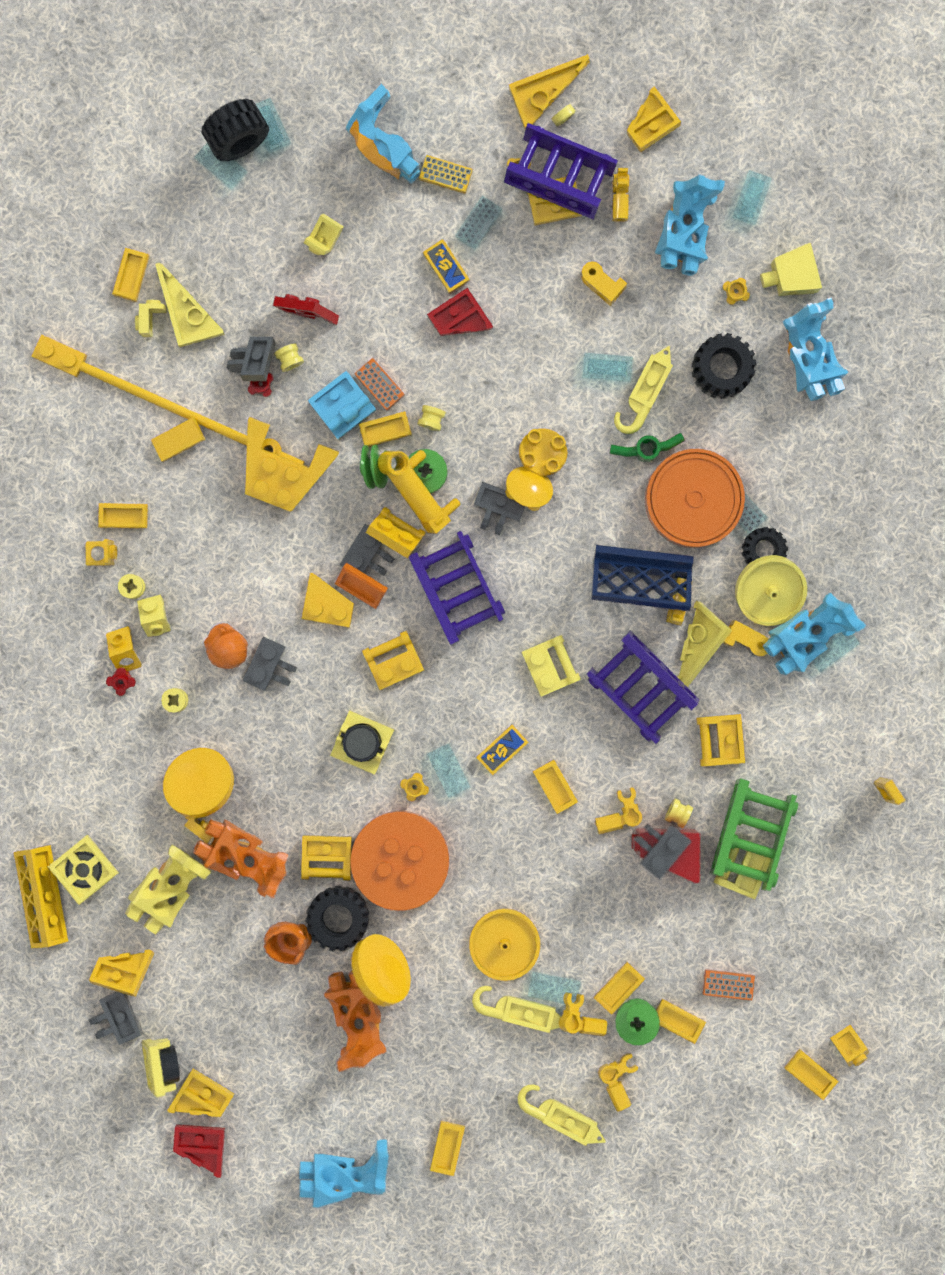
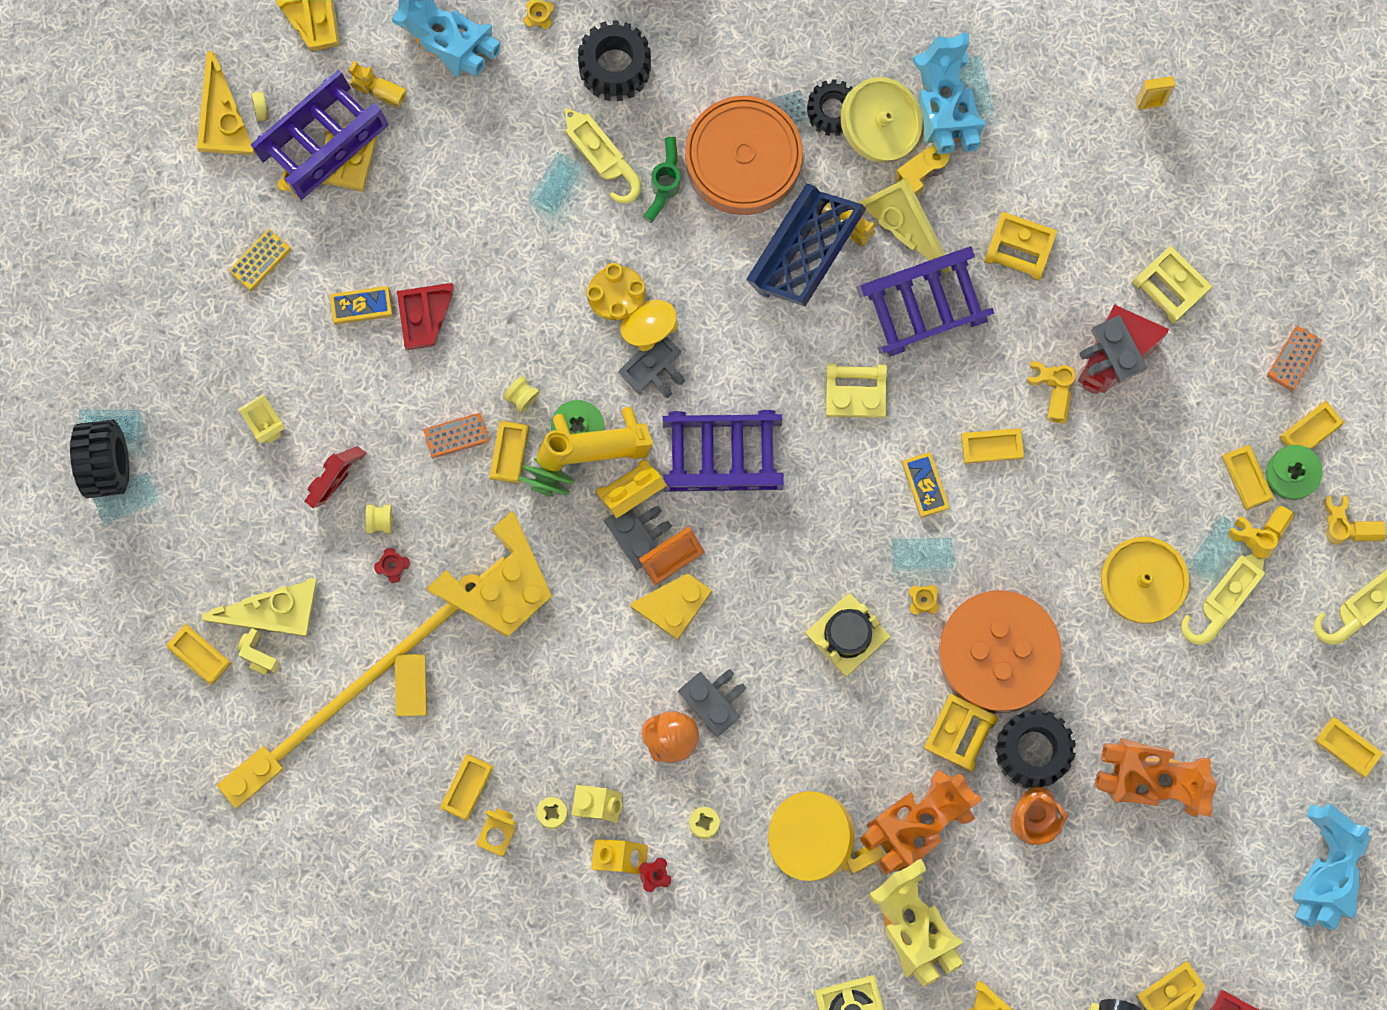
camera: 65 degrees left, 10 degrees down
(253, 361) = (362, 558): dark grey hinge -> none
(342, 405) = (460, 485): medium azure plate -> none
(381, 970) = (1115, 723): yellow piece -> none
(383, 150) = (199, 311): medium azure hips -> none
(396, 668) = (781, 559): yellow plate -> none
(478, 223) = (331, 249): tile -> none
(601, 283) = (461, 149): yellow leg -> none
(678, 813) = (1080, 325): light yellow wheel -> none
(729, 840) = (1135, 283): bright green fence -> none

